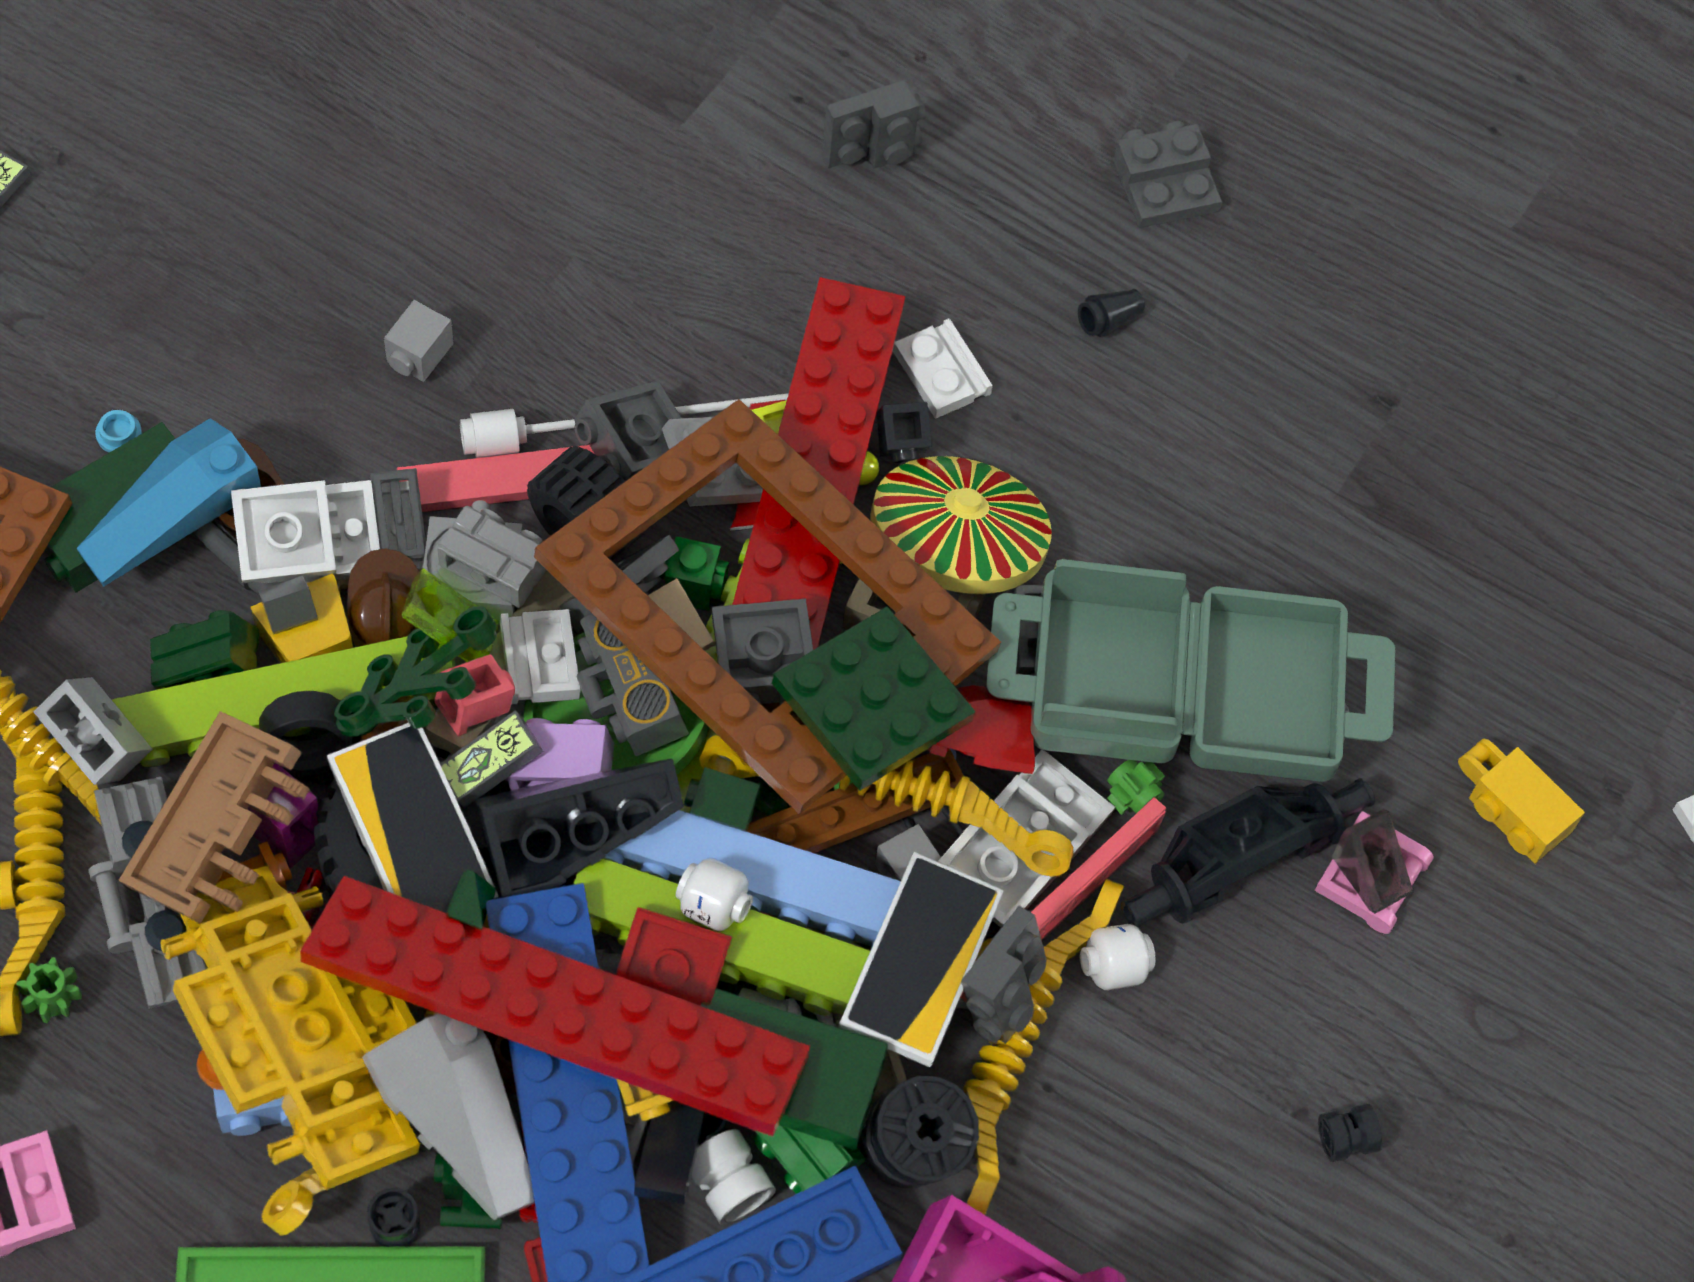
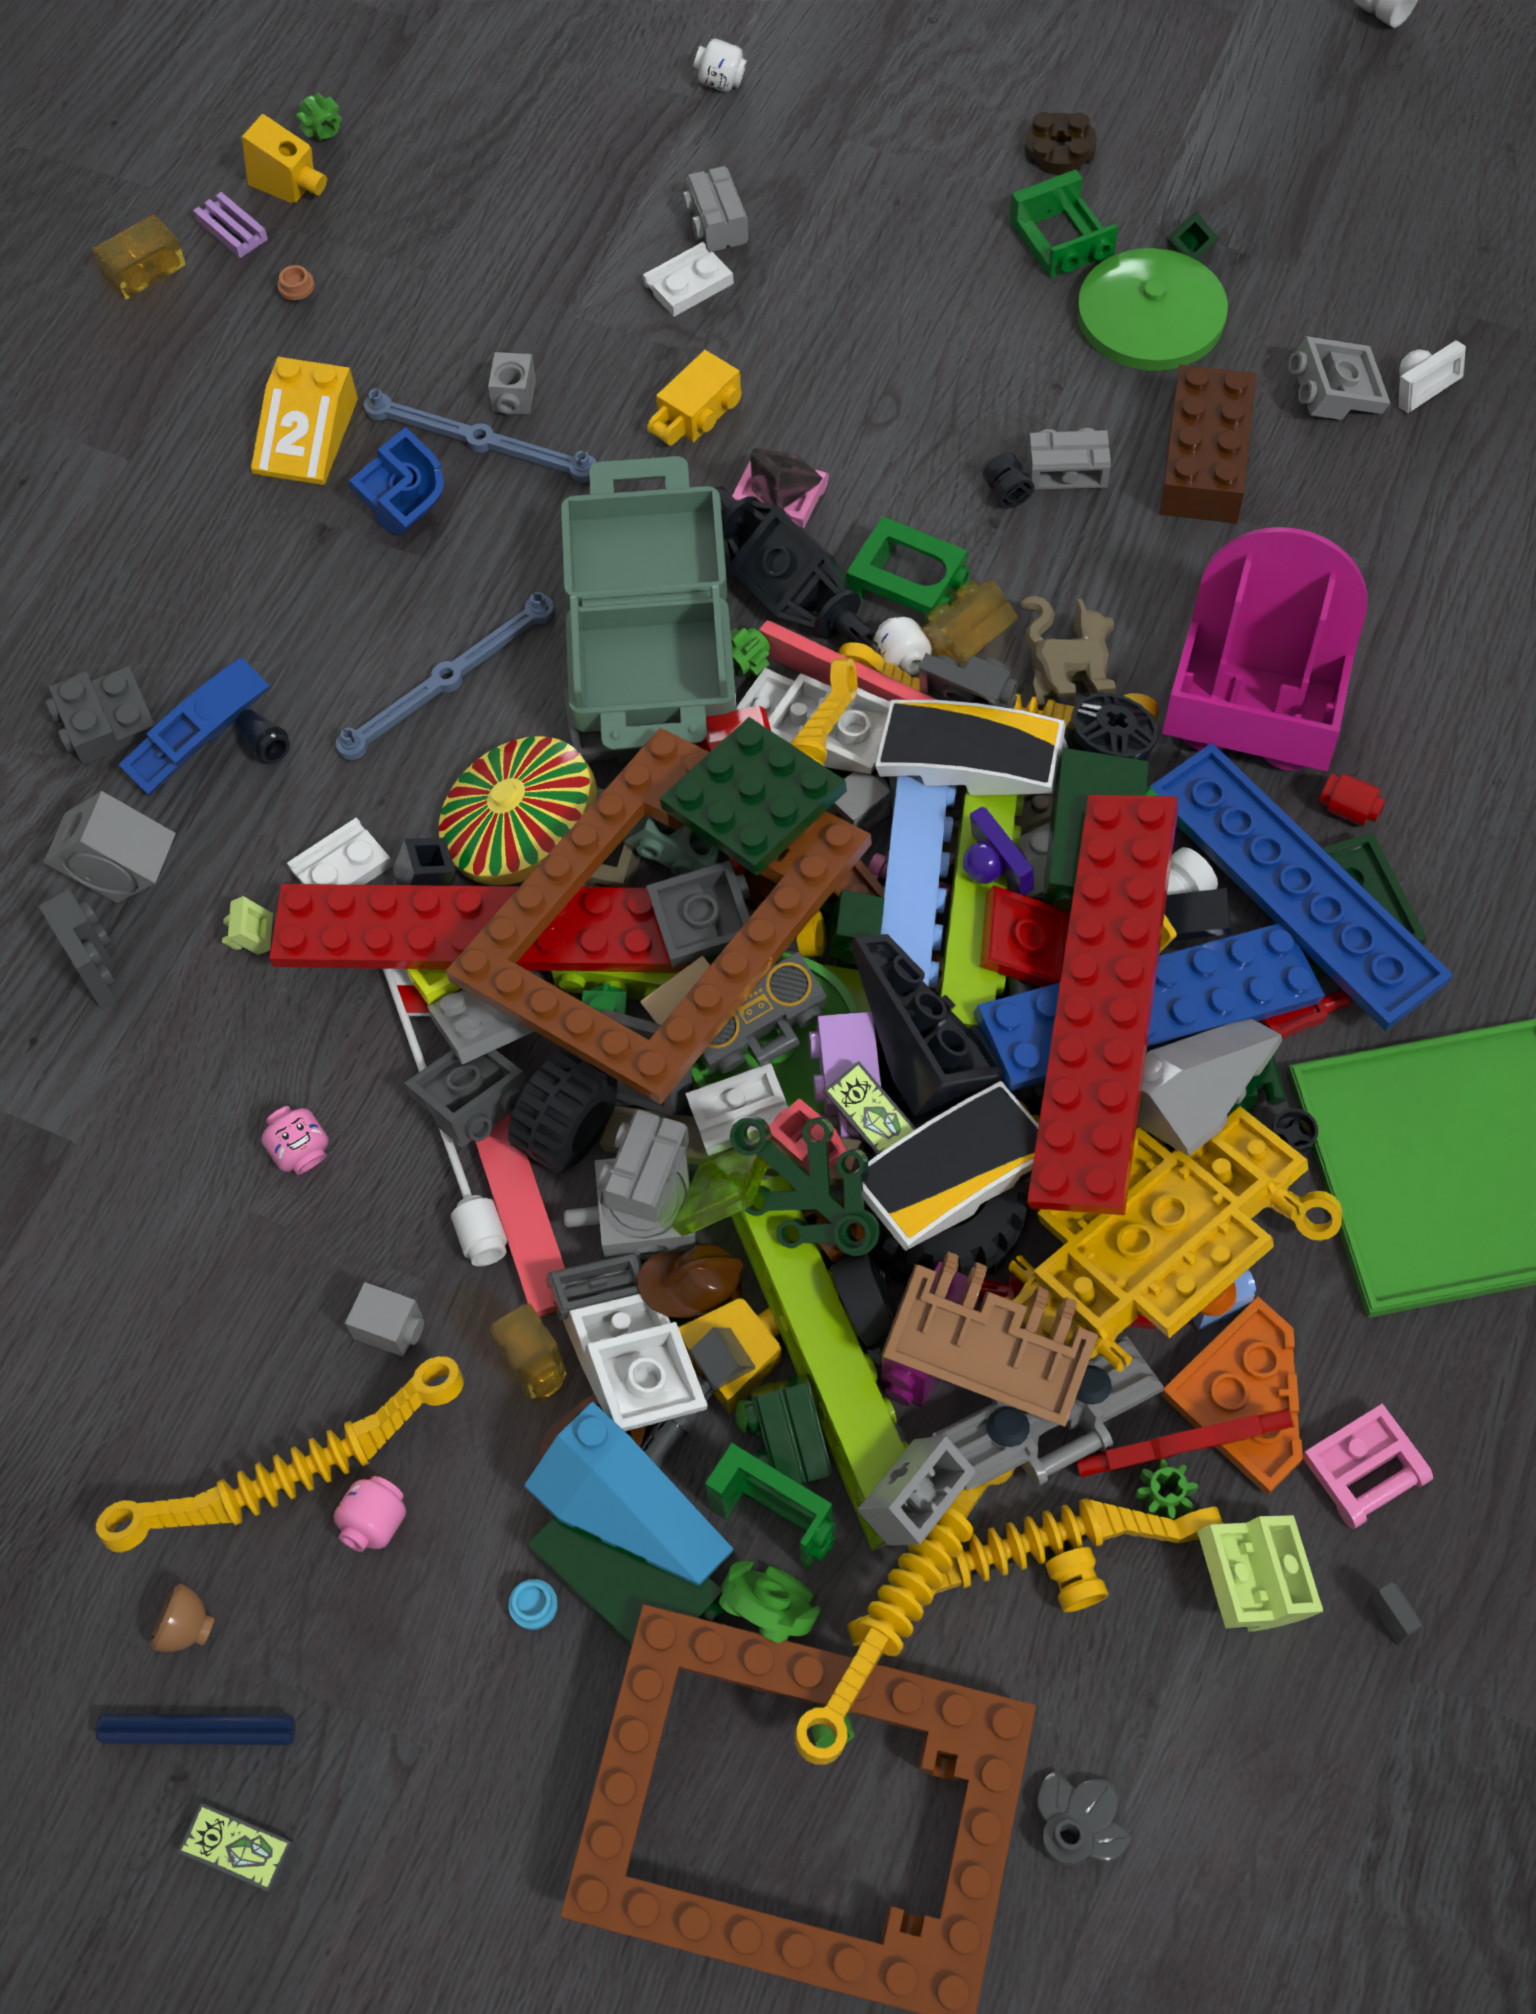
camera: 90 degrees left, 0 degrees up
(25, 603) = (769, 1600): none -> bright green plate
(85, 997) = (1185, 1441): none -> red piece
(92, 170) = (195, 1729): none -> dark blue axle
(125, 1096) = (1245, 1375): none -> orange plate
(167, 597) = (747, 1475): none -> green panel
(185, 163) = (181, 1621): none -> medium nougat brick
(237, 312) = (370, 1514): none -> bright pink head
(296, 251) = (225, 1503): none -> yellow piece
(343, 444) = (529, 1352): none -> clear yellow brick
(470, 900) = (1024, 1092): dark green slope -> none
(628, 291) = (295, 1140): none -> bright pink head
(714, 894) = (959, 903): white head -> none
(771, 951) = (995, 855): none -> dark purple tile
(878, 272) = (248, 926): none -> yellowish green tile
(973, 151) = (109, 847): none -> light grey piece
(1066, 1137) = (1068, 661): none -> dark tan animal
(1091, 397) = (353, 743): none -> sand blue piece
(1131, 250) = (193, 724): none -> blue slope
(1134, 1030) = (969, 621): none -> clear yellow brick
(1248, 947) = (867, 573): none -> green panel
(1374, 1212) = (1069, 459): none -> light grey brick
(1423, 468) = (400, 482): none -> blue brick
(1440, 667) = (380, 407): none -> sand blue piece
(1536, 390) = (303, 420): none -> yellow slope
(1579, 595) = (512, 383): none -> light grey brick

